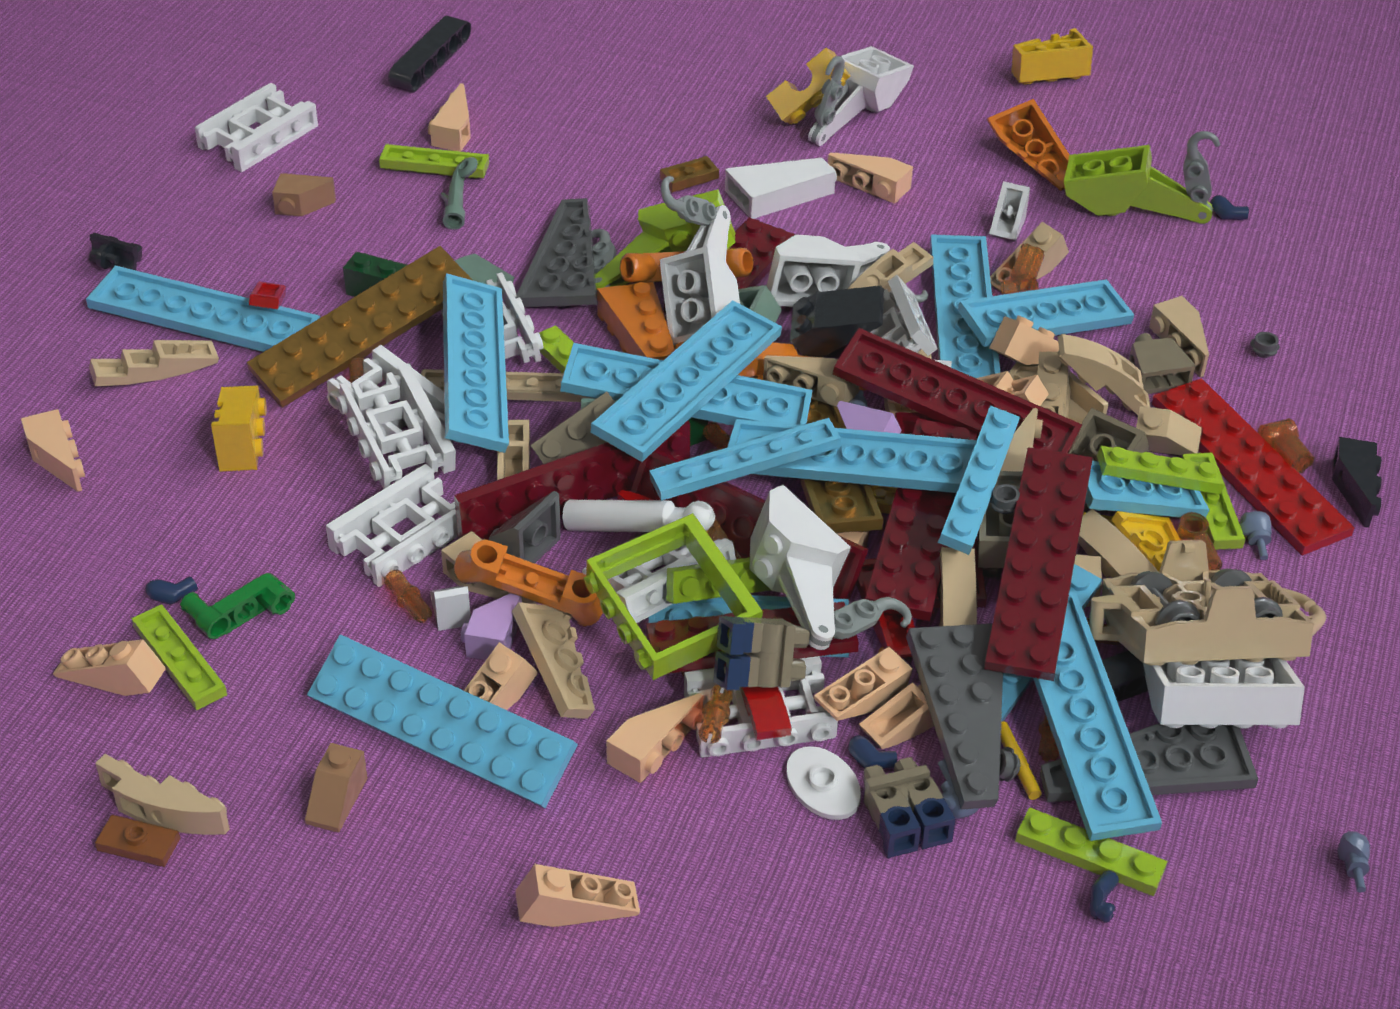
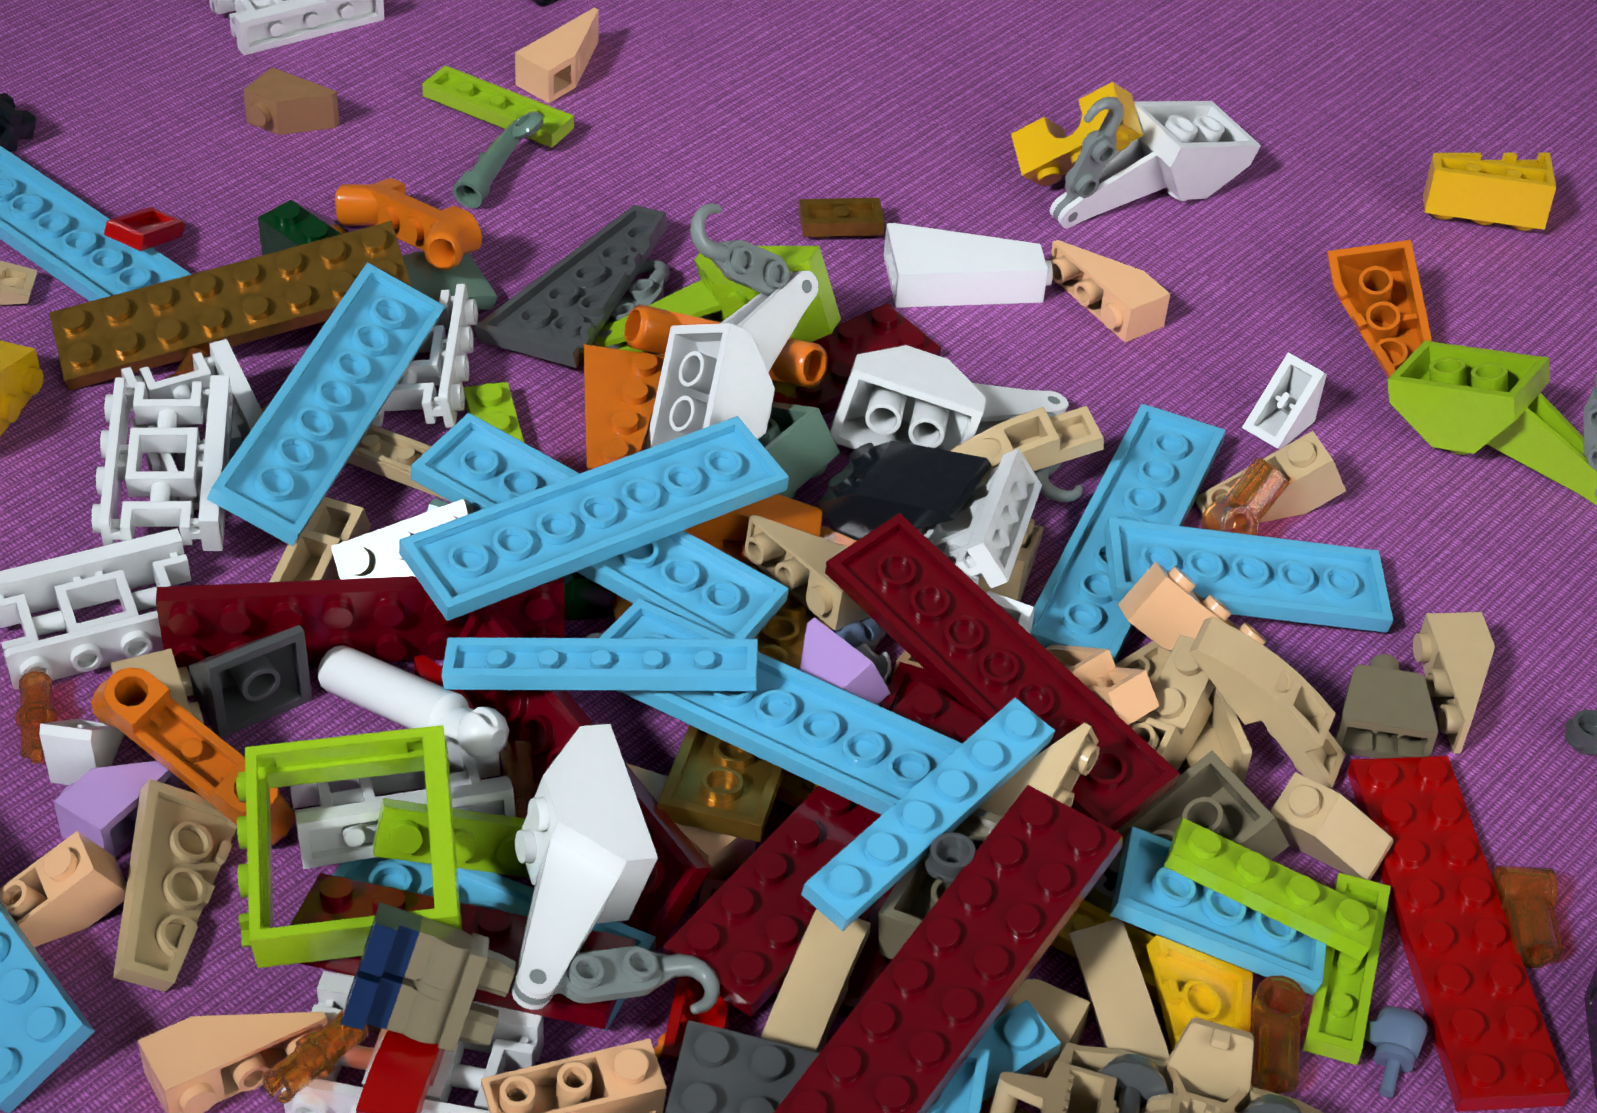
camera: 20 degrees right, 0 degrees up
(411, 241) = (441, 233): none -> orange plate

